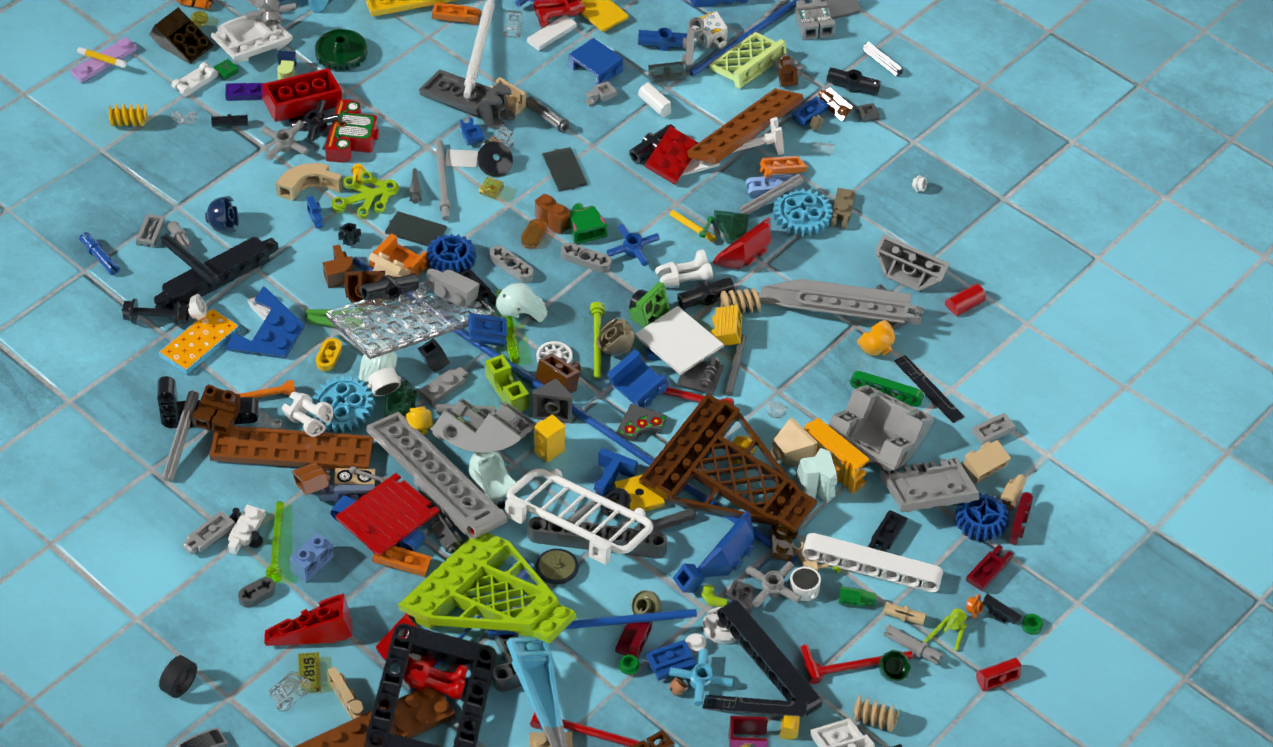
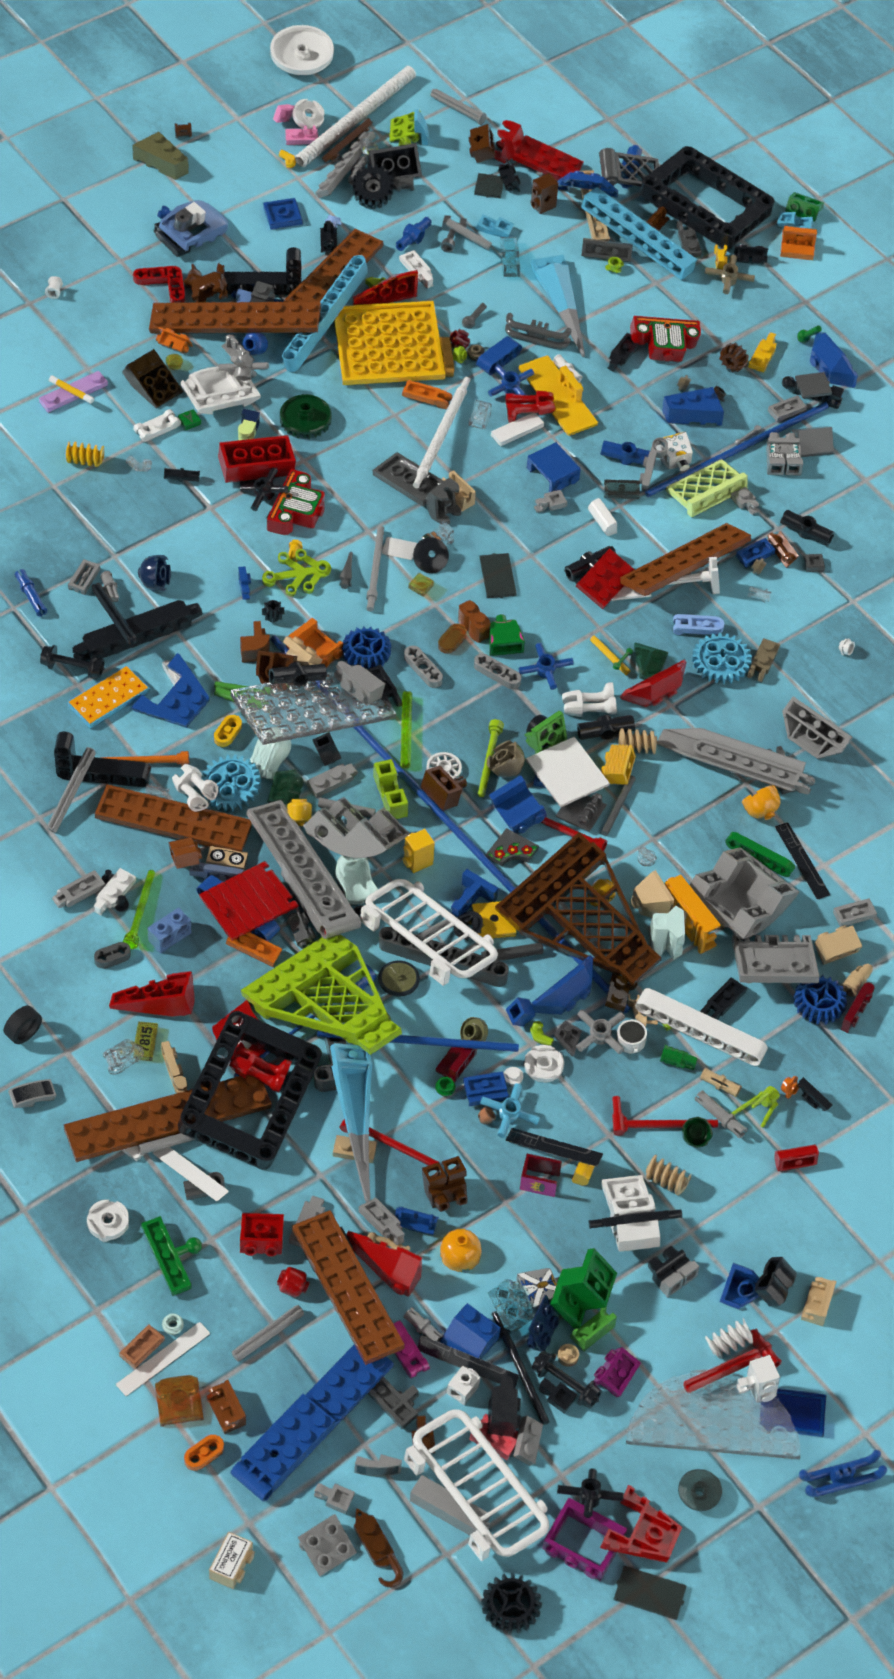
camera: 10 degrees right, 5 degrees up
(197, 307) = (112, 663): white plate -> none
(217, 409) = (109, 771): reddish brown hips -> none
(243, 91) = (201, 445): dark purple hinge -> none
(284, 140) = (230, 504): light grey bar -> none
(307, 176) = (243, 544): tan arch -> none
(353, 470) = (226, 850): light grey hinge -> none
(384, 381) = (272, 768): white piece -> none
(415, 228) = (338, 615): clear smoke piece -> none
(471, 132) = (414, 523): blue plate -> none
(487, 329) = (384, 731): blue plate -> none
(519, 299) = (422, 705): light aqua piece -> none
(552, 399) = (430, 815): dark grey slope -> none
(561, 124) = (504, 528): dark grey axle -> none
(768, 656) = (578, 1102): black beam -> none
(771, 194) = (694, 635): light grey axle -> none
(782, 165) = (713, 606): orange hinge -> none
(786, 74) = (742, 511): reddish brown plate -> none
(883, 59) = (843, 508): axle -> none
(966, 299) = (862, 775): red brick -> none
(988, 568) = (814, 1051): dark red hinge -> none
(1032, 624) = (842, 1114): green tile -> none

